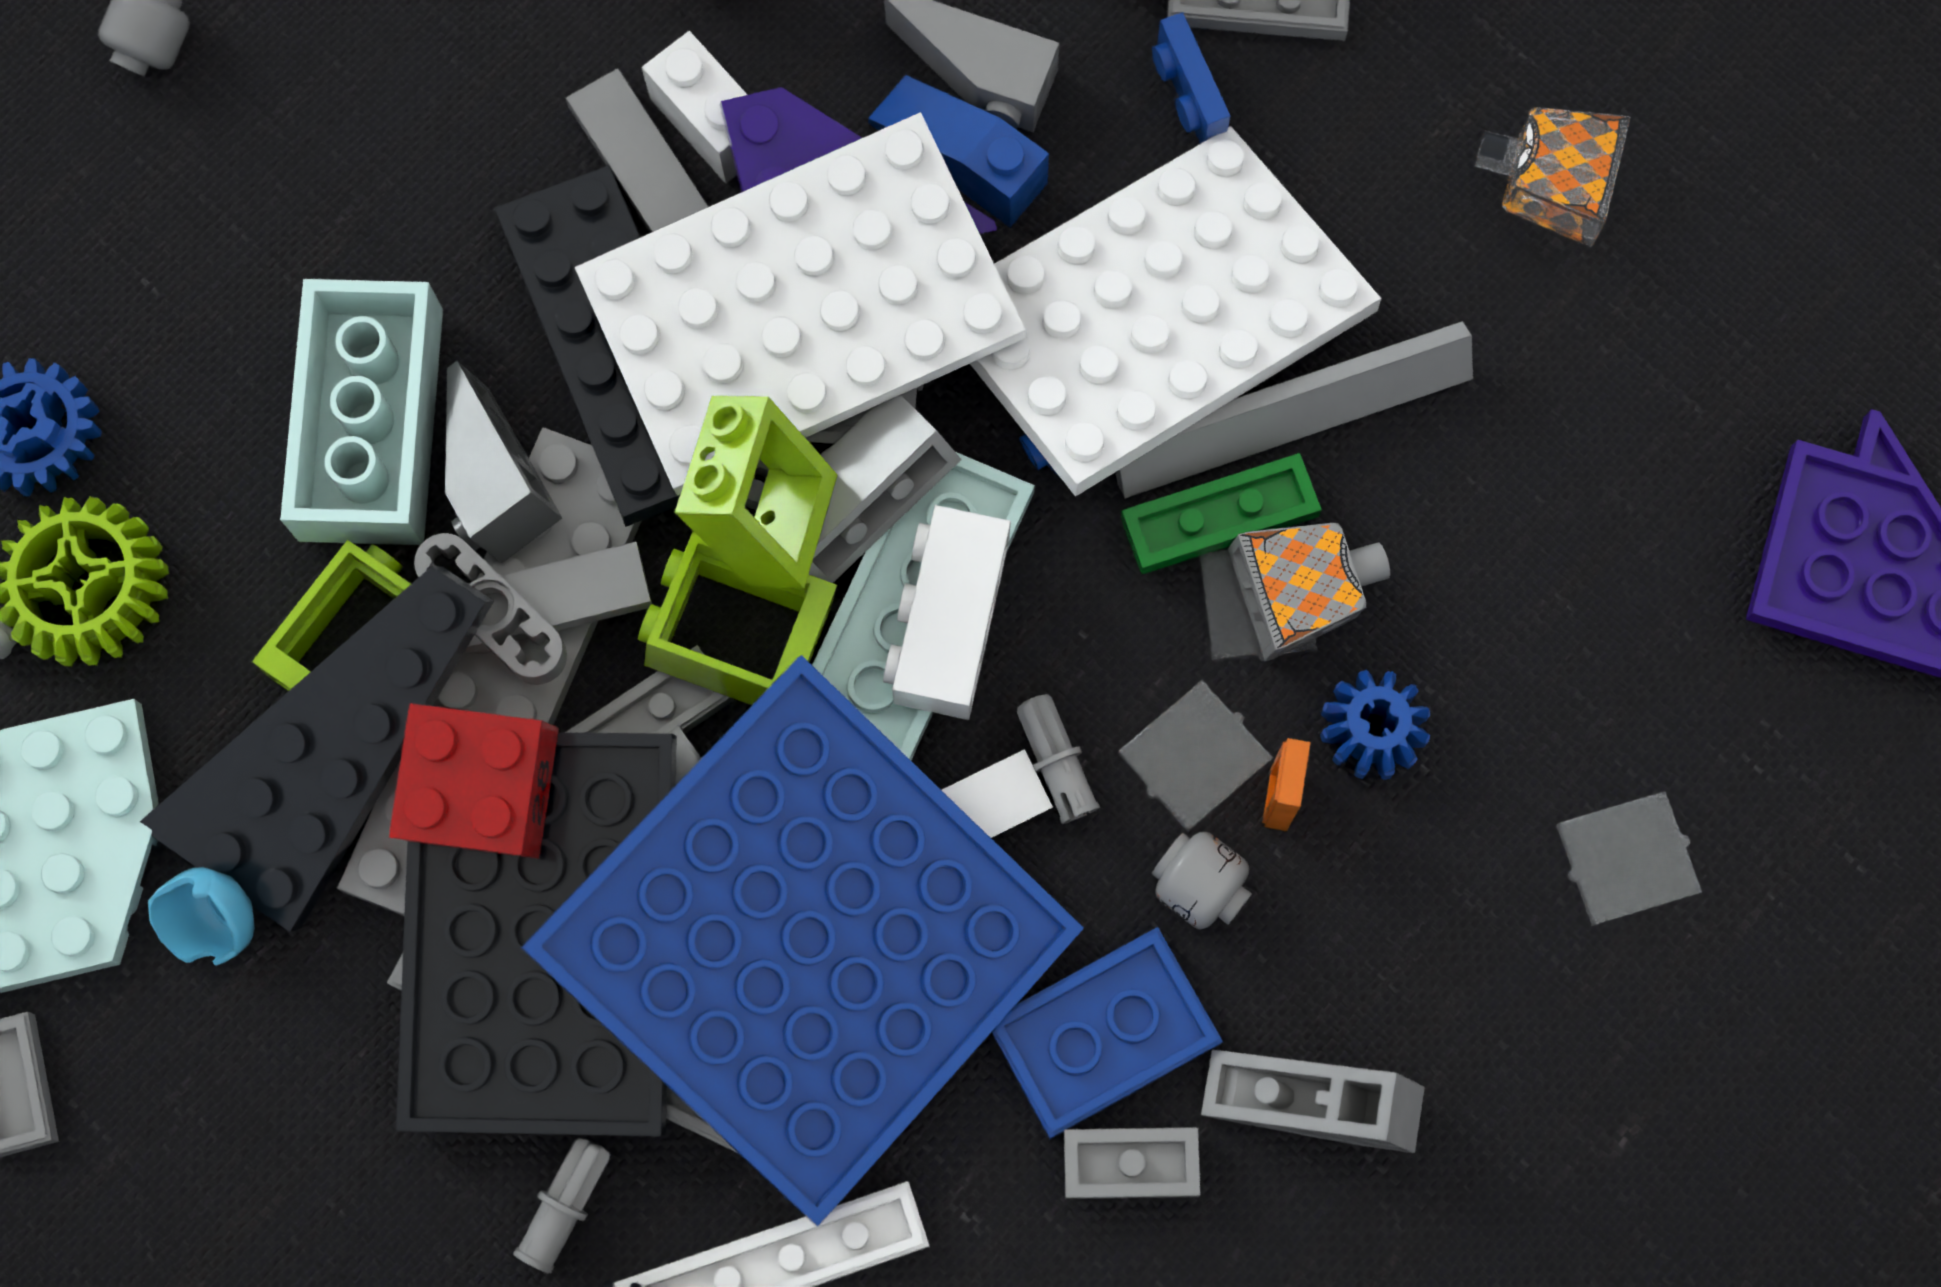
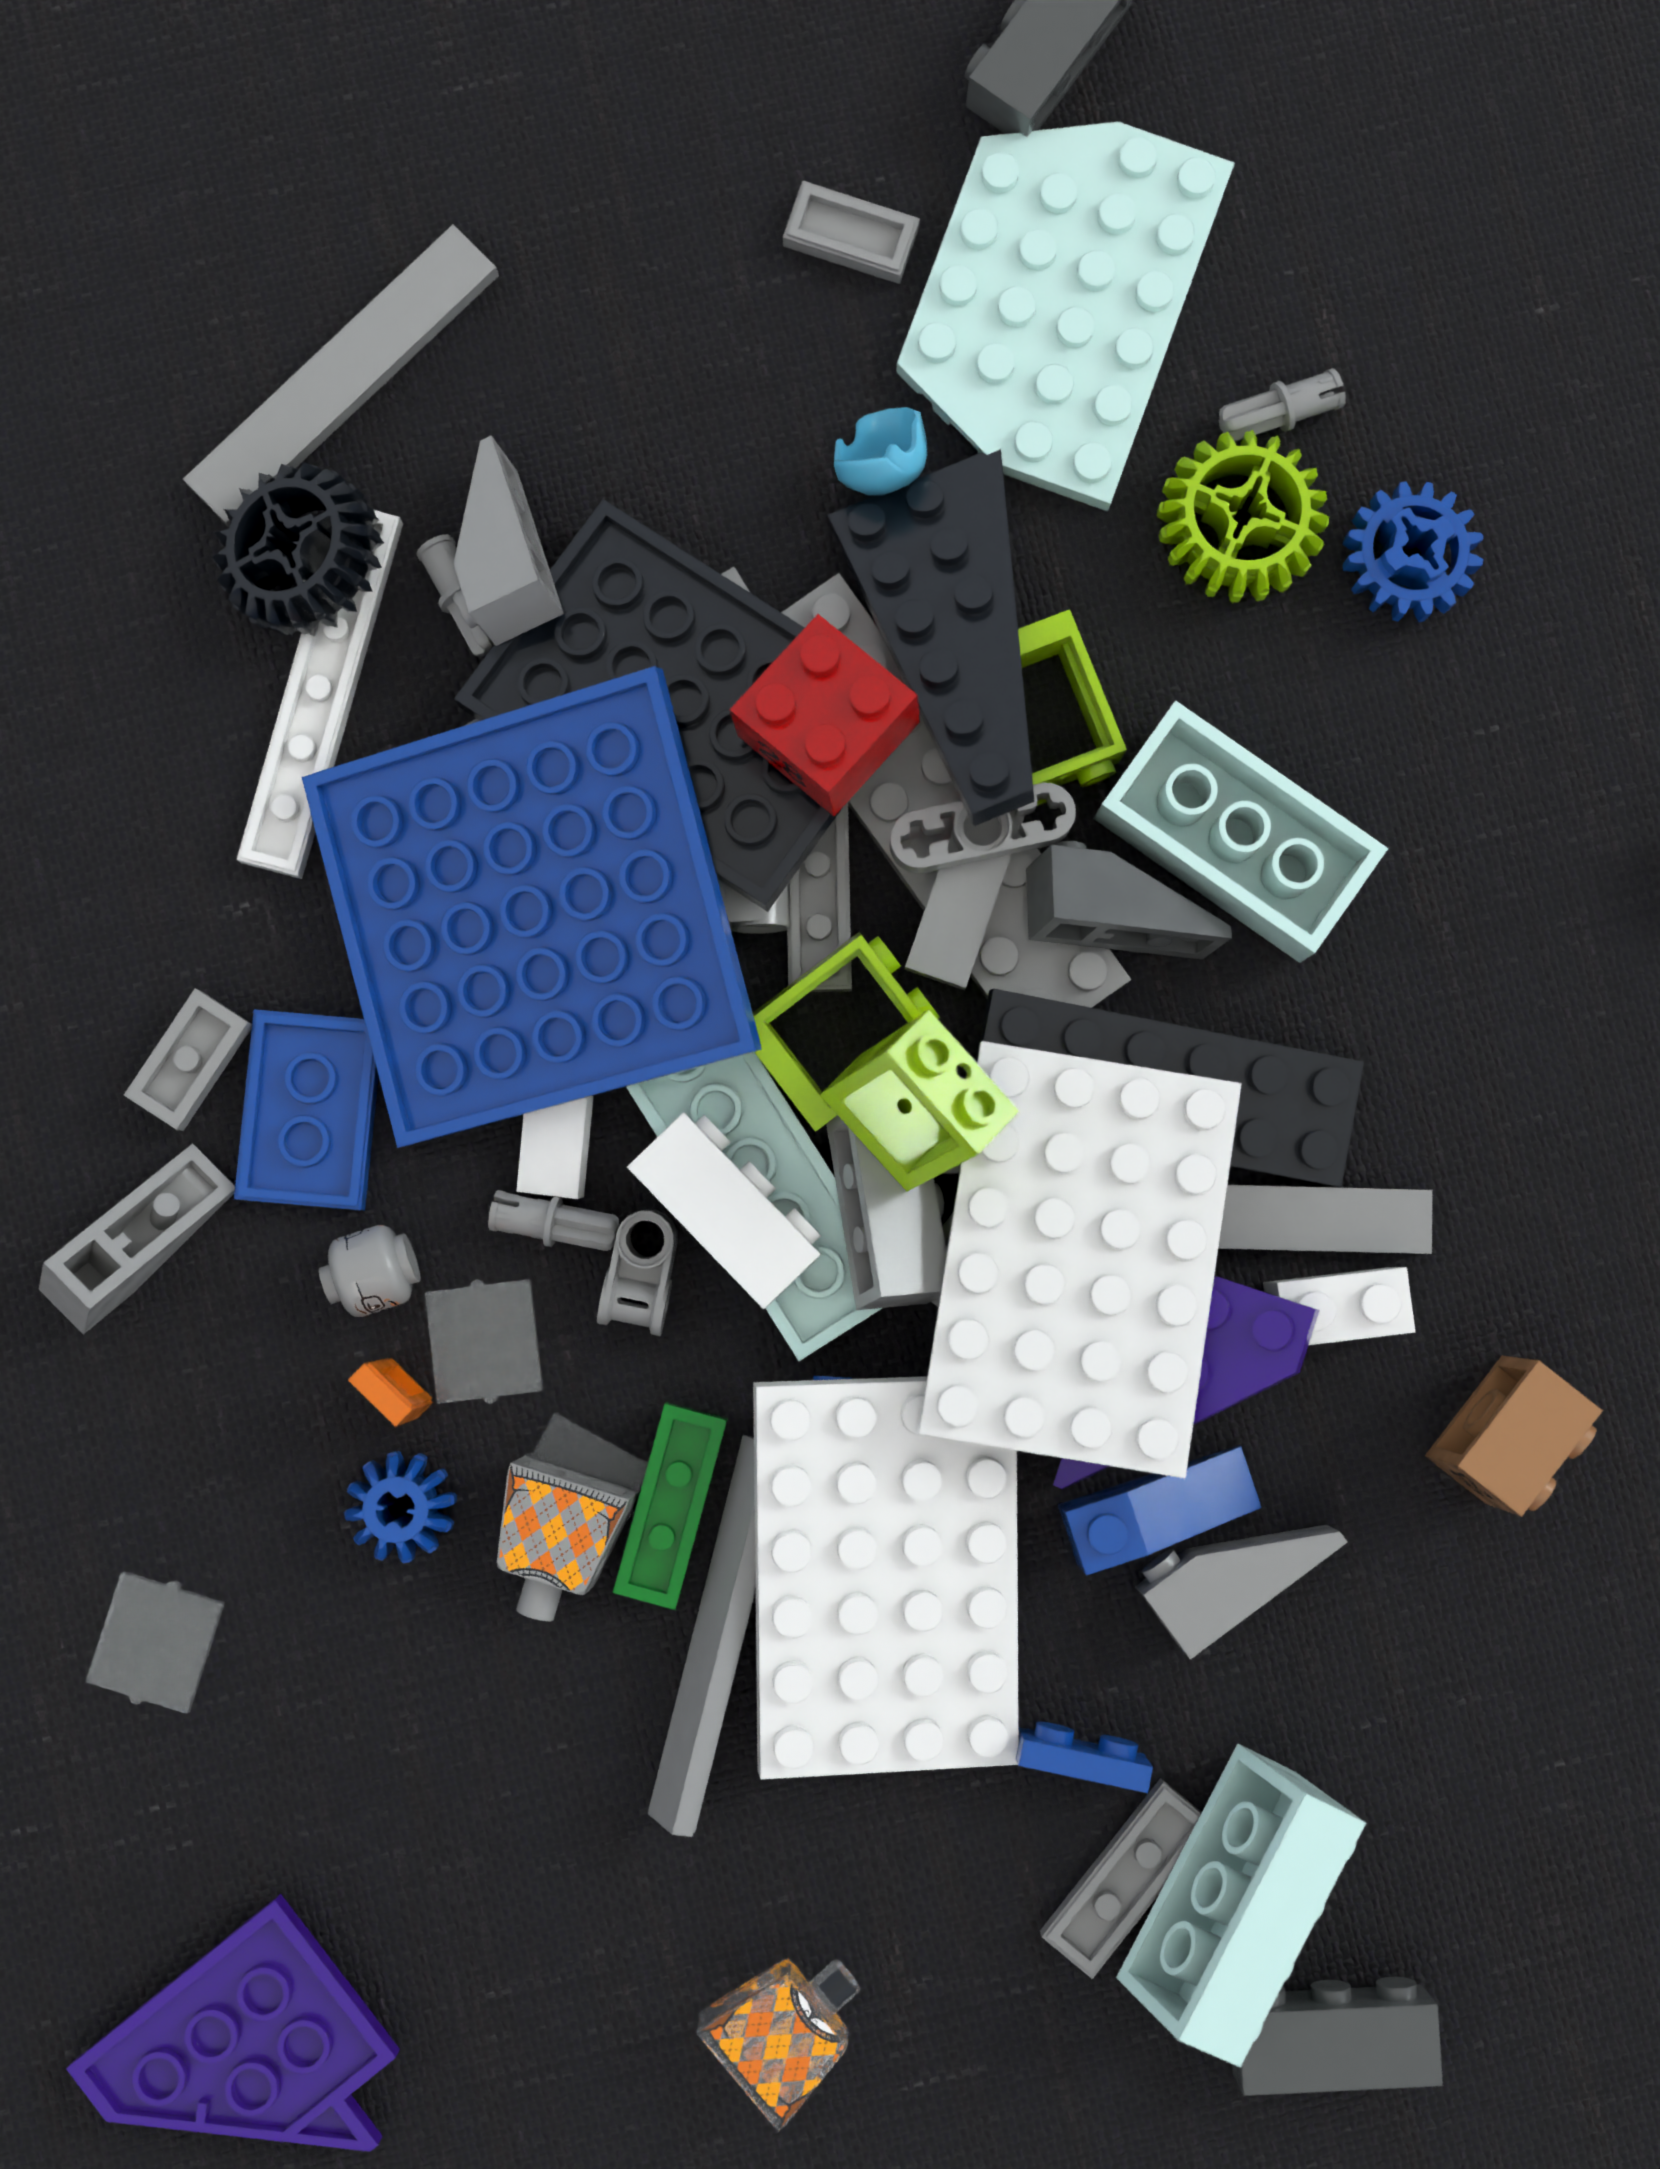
camera: 120 degrees right, 10 degrees up
(507, 1179) = (500, 554): none -> light grey slope
(1061, 654) = (639, 1276): none -> light grey piece

